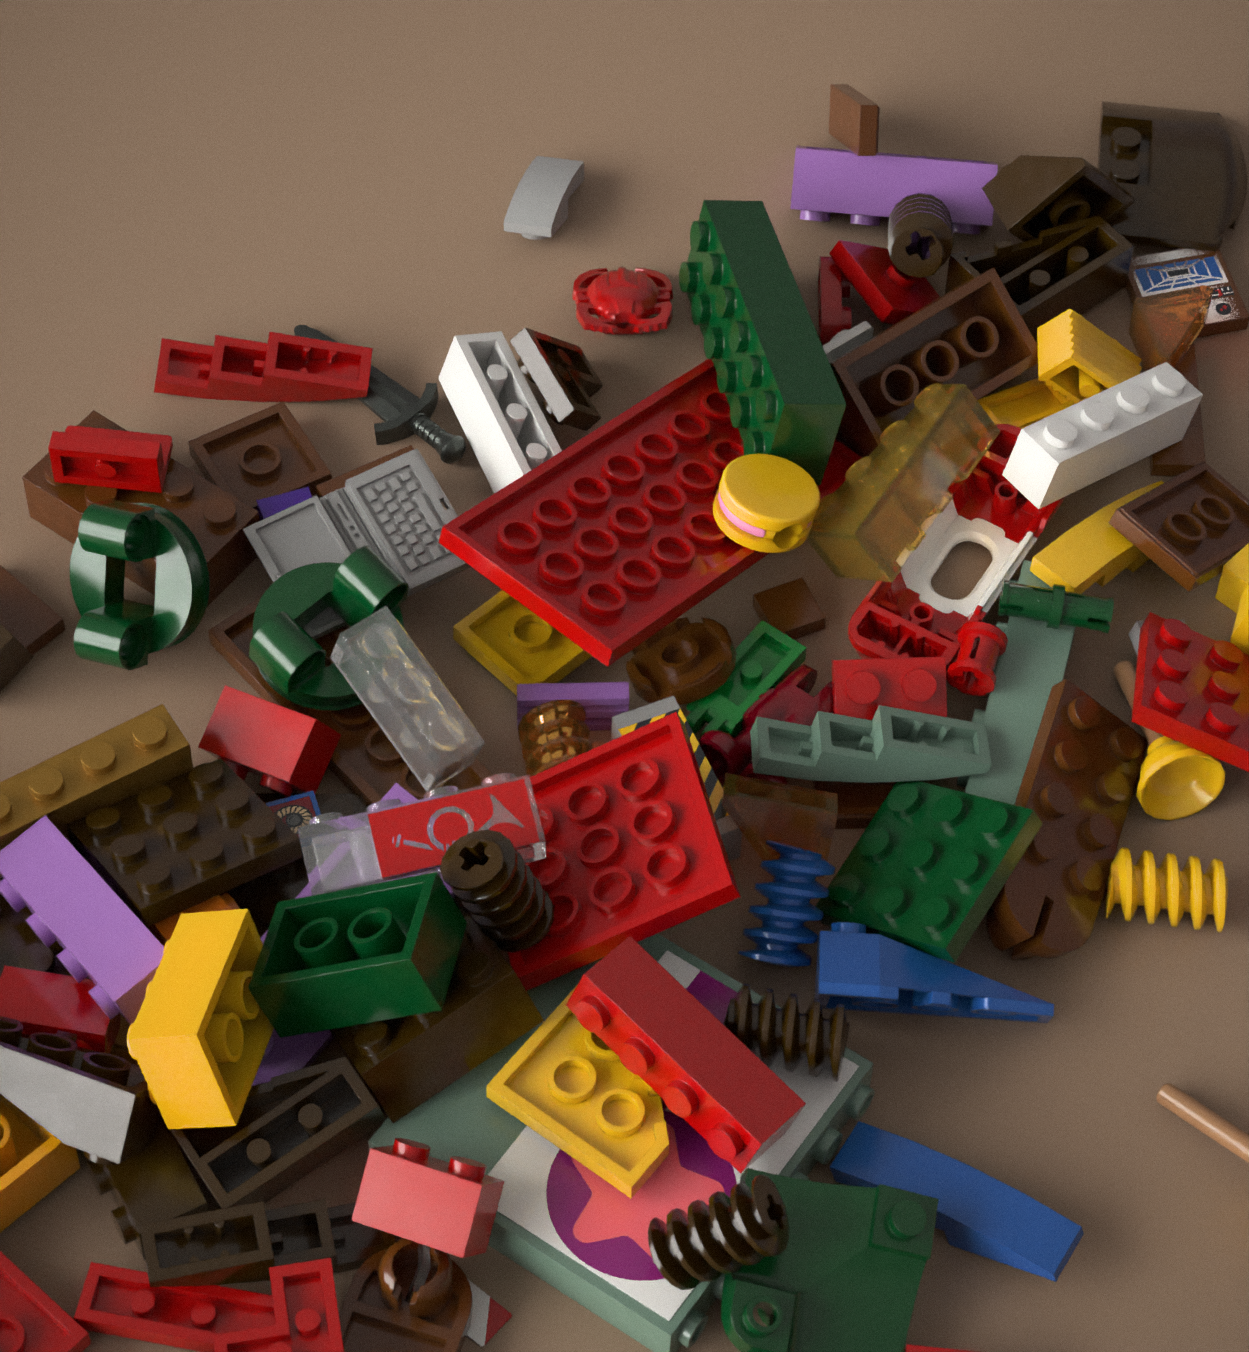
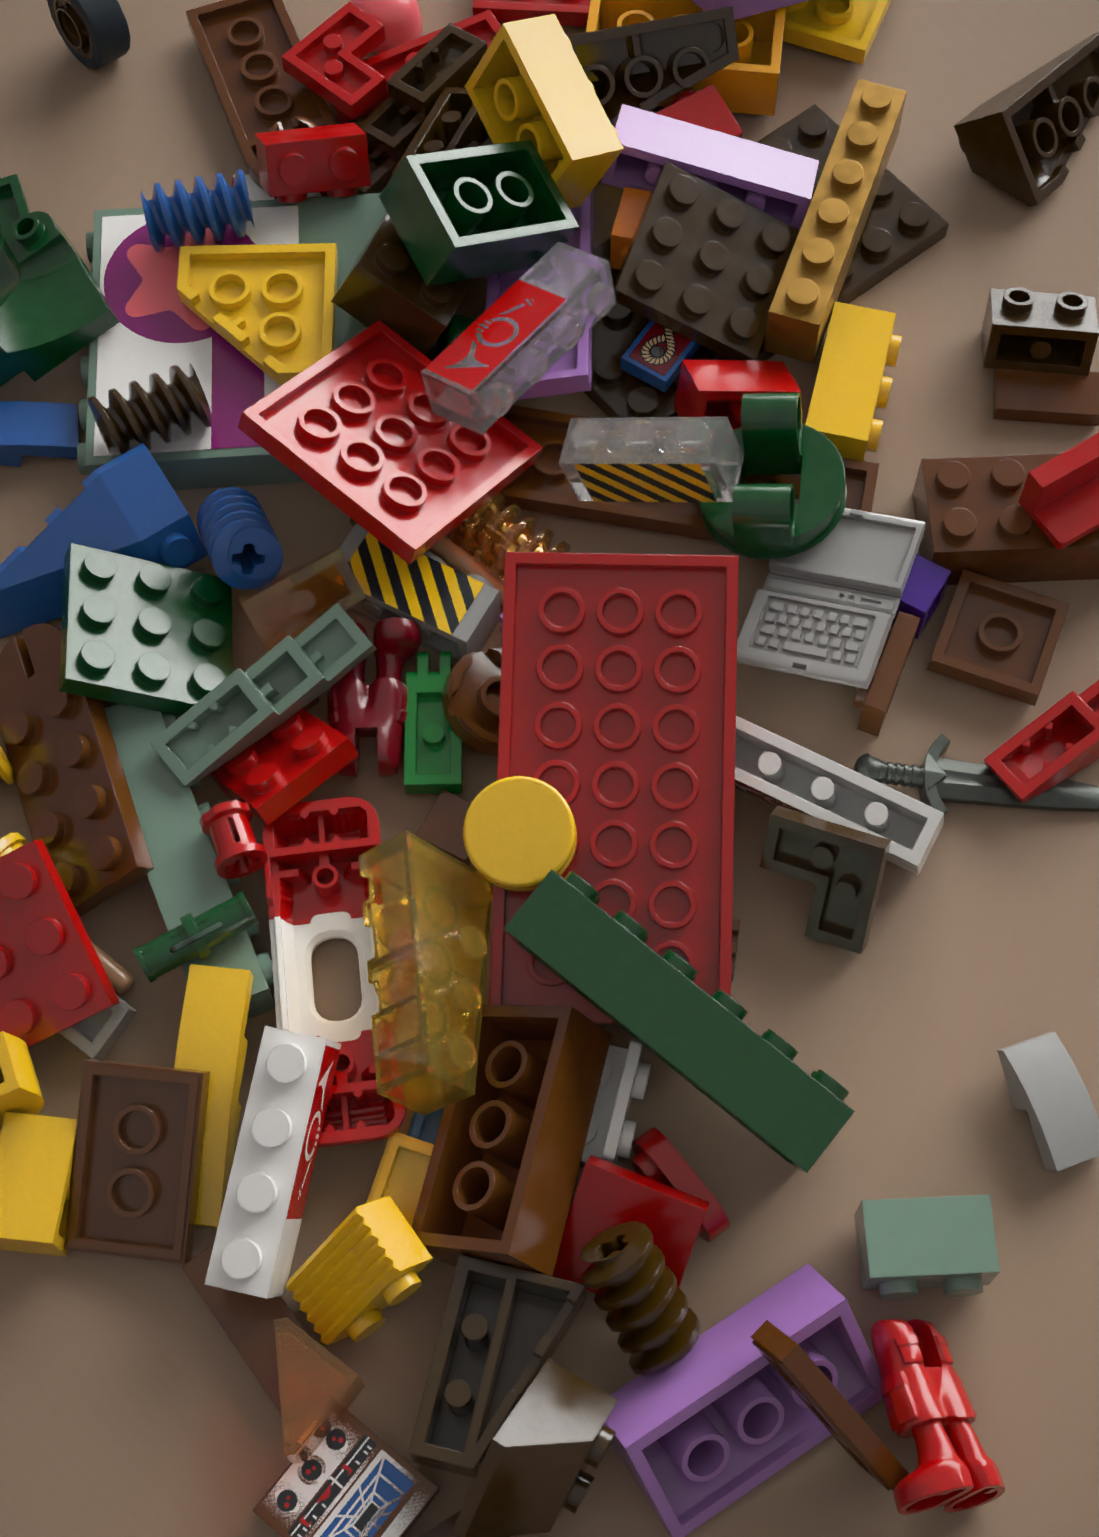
camera: 145 degrees right, 10 degrees up
(123, 630) = (959, 412): dark green piece -> none
(184, 682) = (852, 378): none -> yellow brick
(498, 890) = (426, 317): dark brown piece -> none
(581, 1213) = (197, 211): none -> blue piece
(623, 300) = (864, 1024): red shield -> none
(685, 1054) = (208, 327): red brick -> none
(700, 166) = (926, 1245): none -> sand green brick
(720, 1235) = (86, 237): dark brown piece -> none
(791, 99) = (930, 1404): none -> red piece

